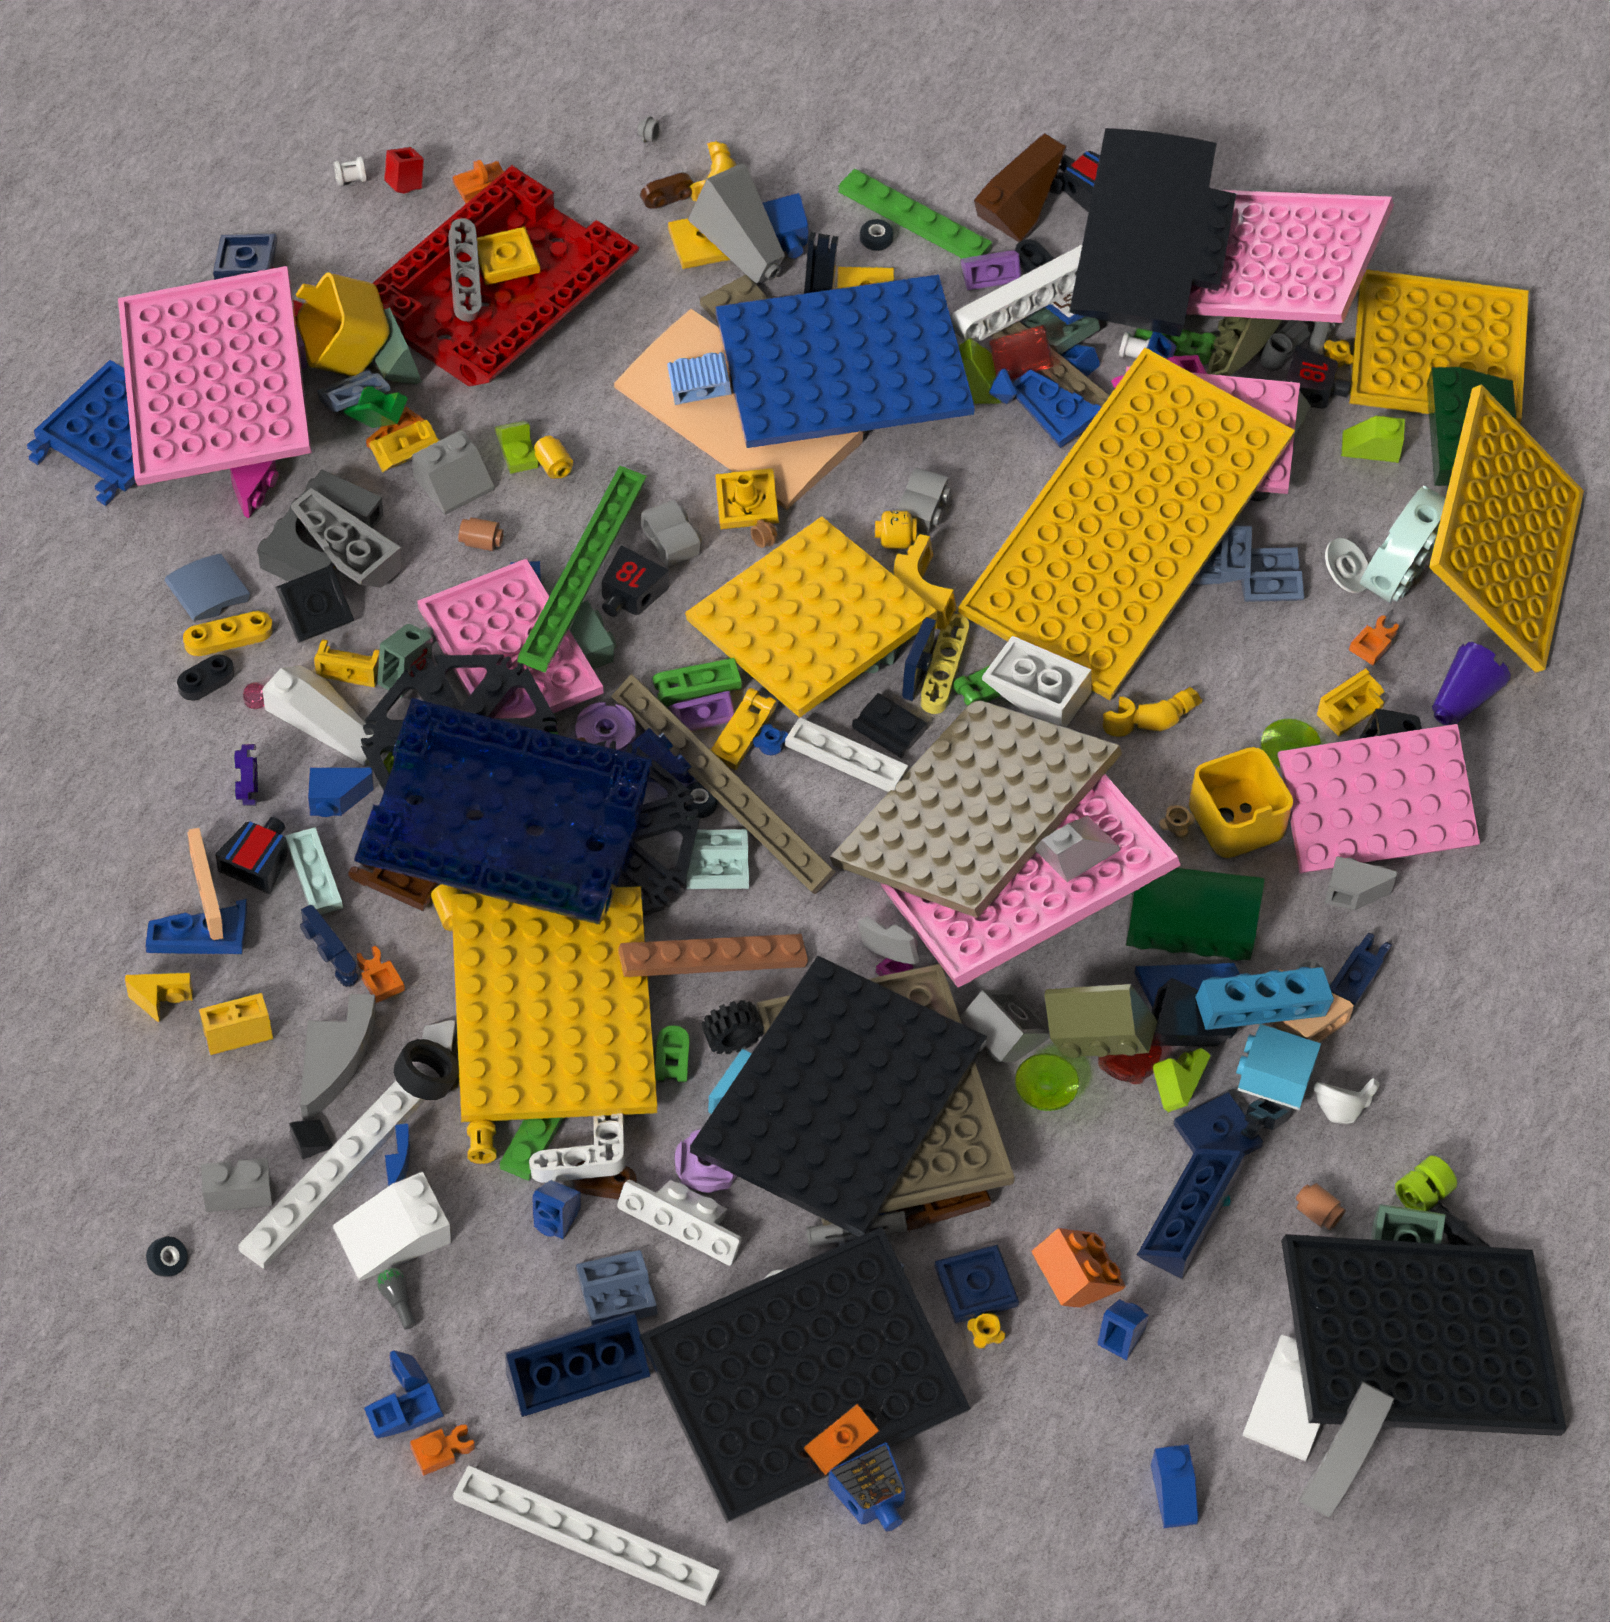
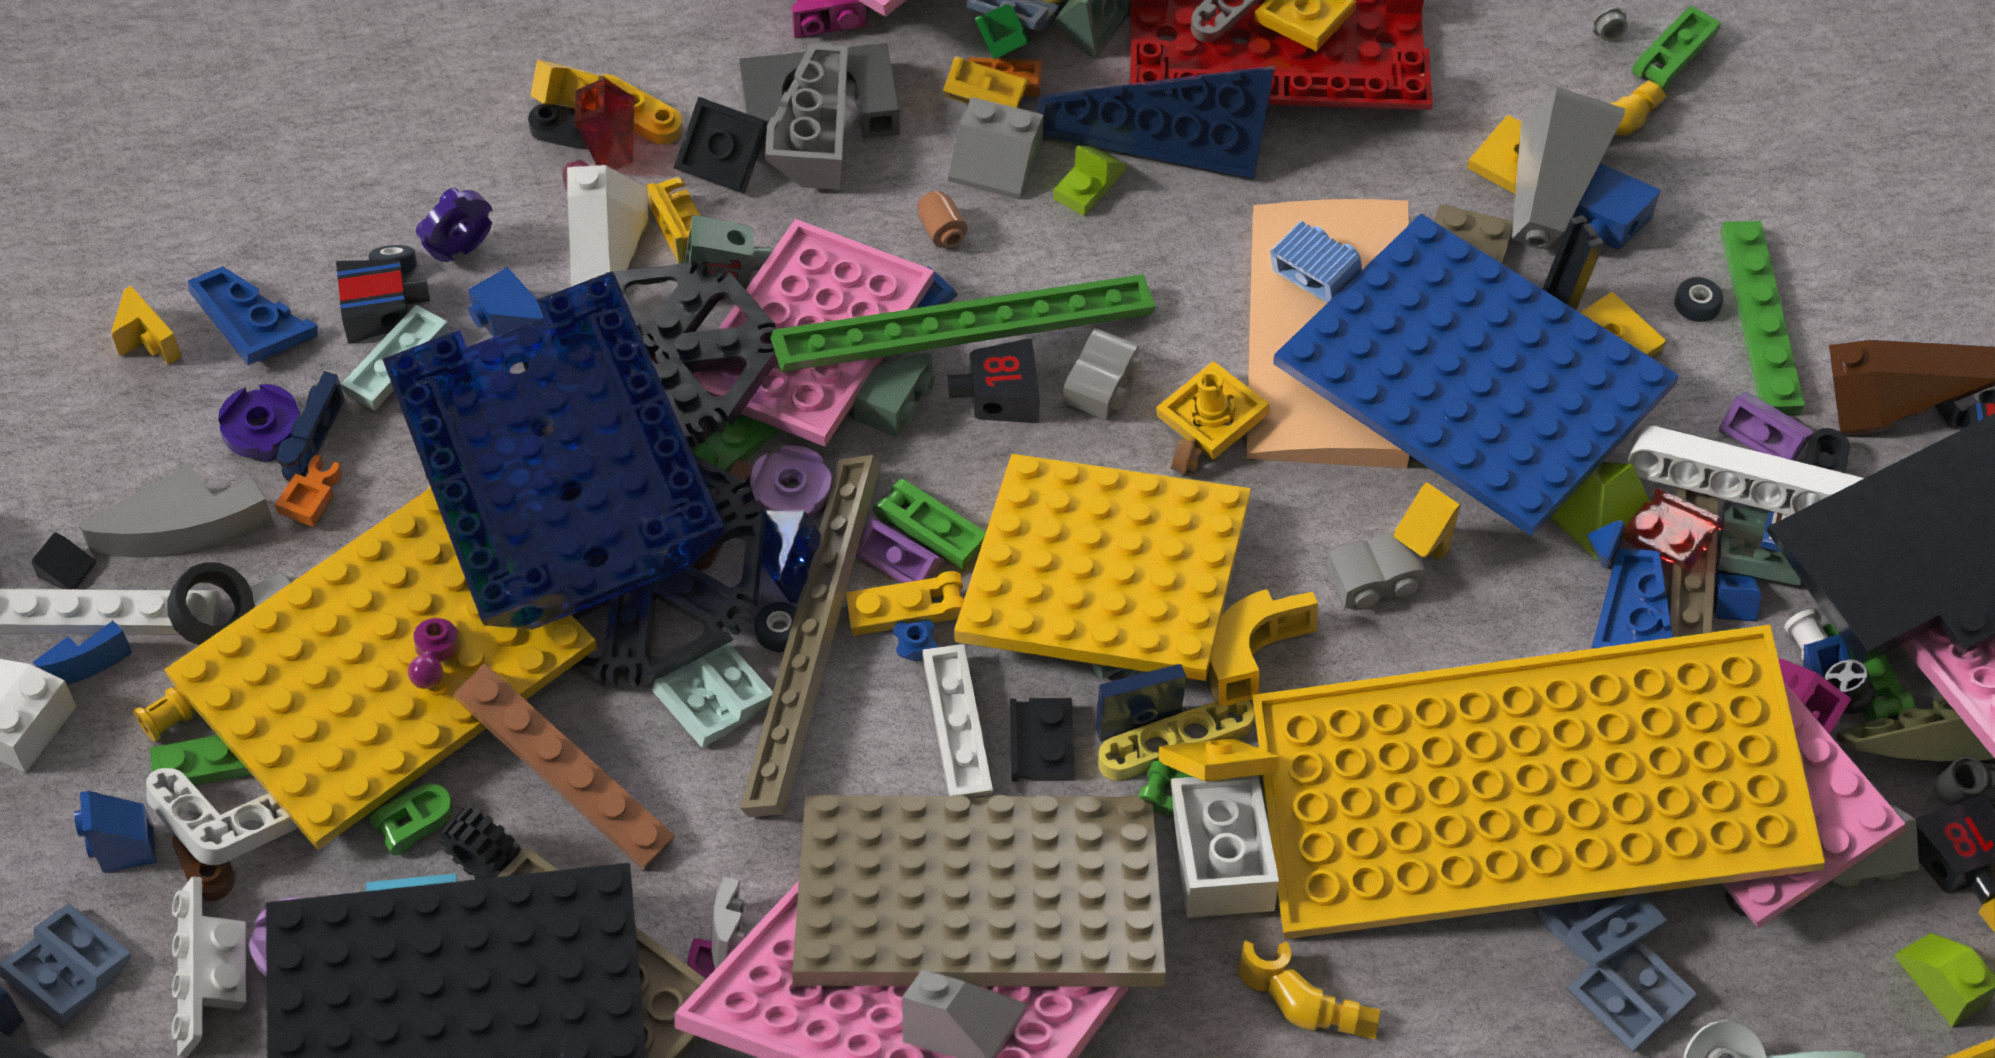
camera: 55 degrees right, 0 degrees up
(180, 654) = (559, 83): none -> yellow slope
(205, 884) = (295, 278): light nougat tile -> none
(207, 587) = (671, 56): sand blue slope -> none
(224, 829) = (404, 254): none -> black wheel
(236, 1023) = (151, 412): yellow hinge -> none
(241, 650) = (606, 122): none -> clear red slope
(301, 987) = (257, 441): none -> dark purple plate
(531, 368) = (1185, 120): none -> dark blue wing
(553, 457) = (1098, 215): yellow brick -> none
(596, 976) = (426, 669): none -> magenta plate
(666, 190) = (1536, 81): reddish brown plate -> none
(696, 113) = (1676, 47): none -> bright green plate
(896, 529) = (1306, 568): yellow head -> none
(924, 451) = (1429, 523): none -> yellow slope
(987, 647) = (1219, 759): none -> yellow plate
(1184, 345) = (1853, 680): none -> black wheel

